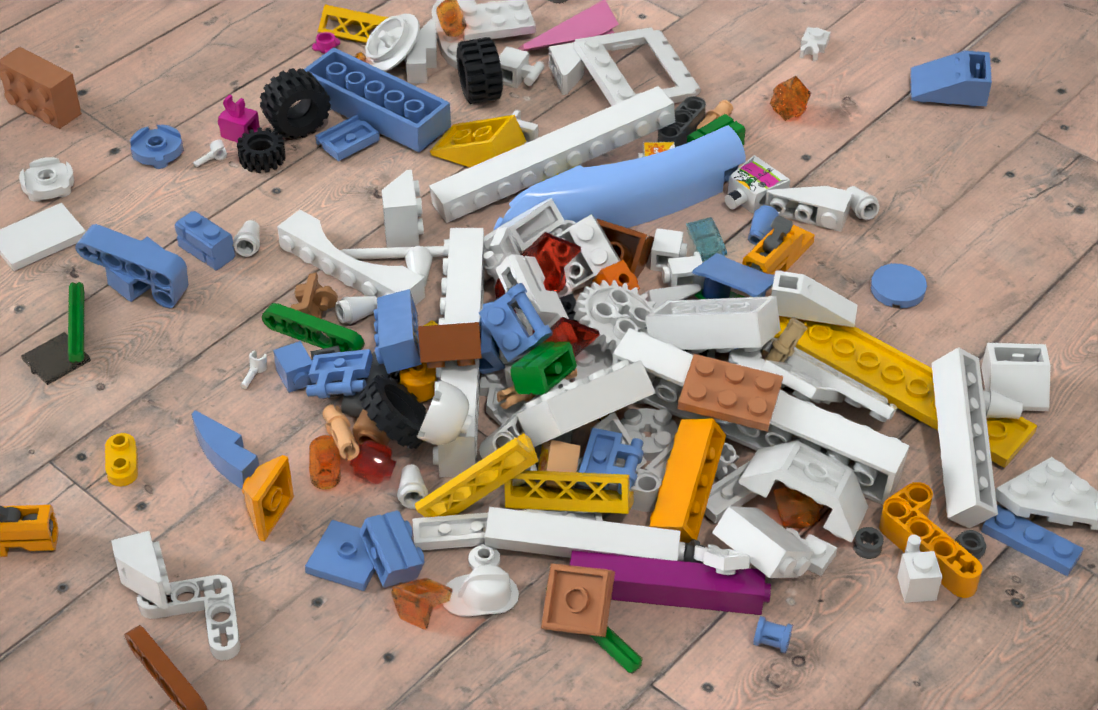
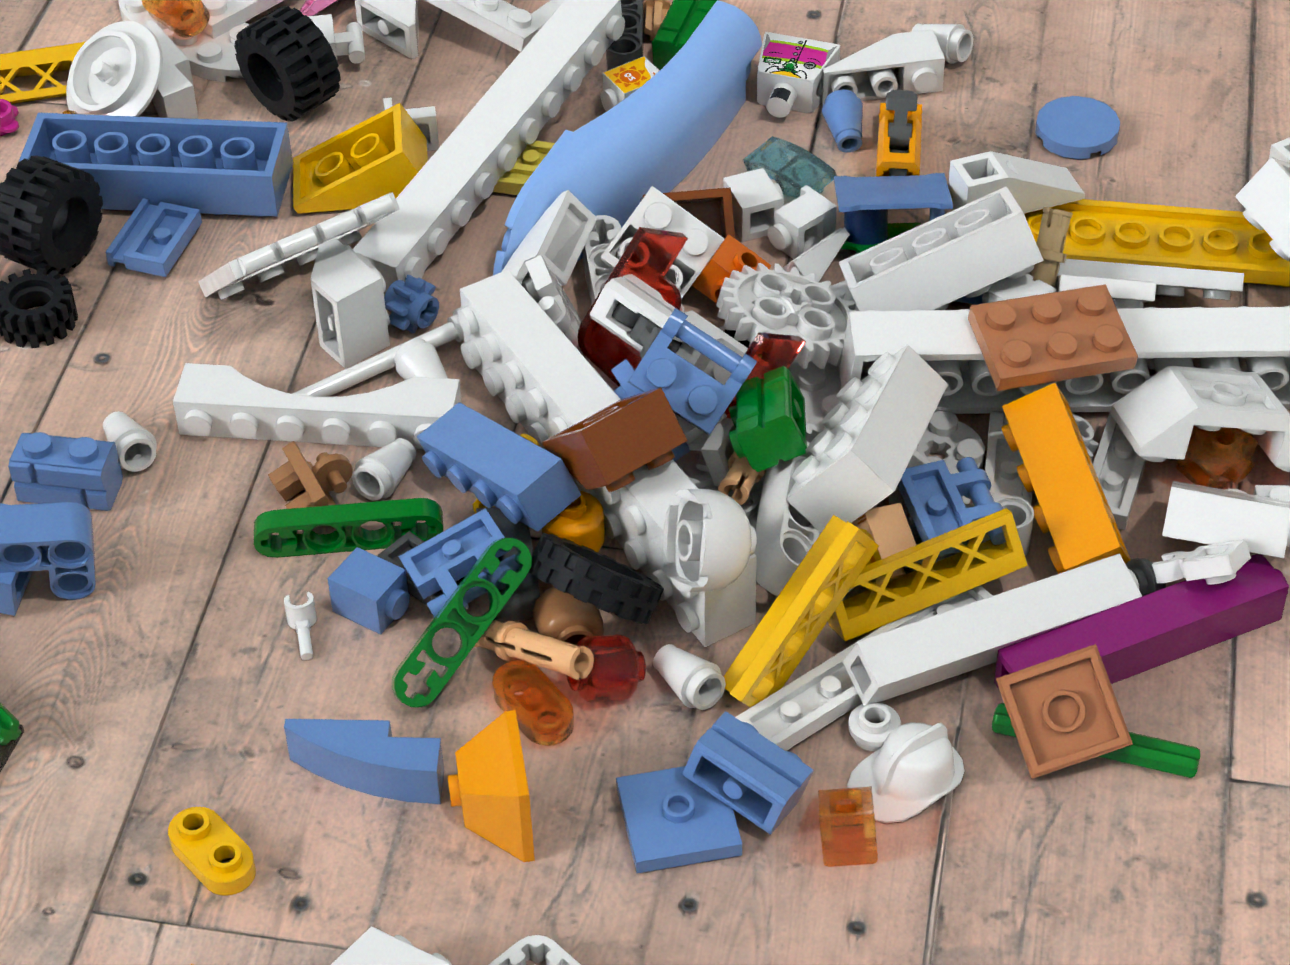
camera: 30 degrees left, 0 degrees up
(313, 400) = (456, 617): none -> green beam
(388, 171) = (301, 246): none -> white hinge
(439, 226) = (411, 303): none -> medium blue gear

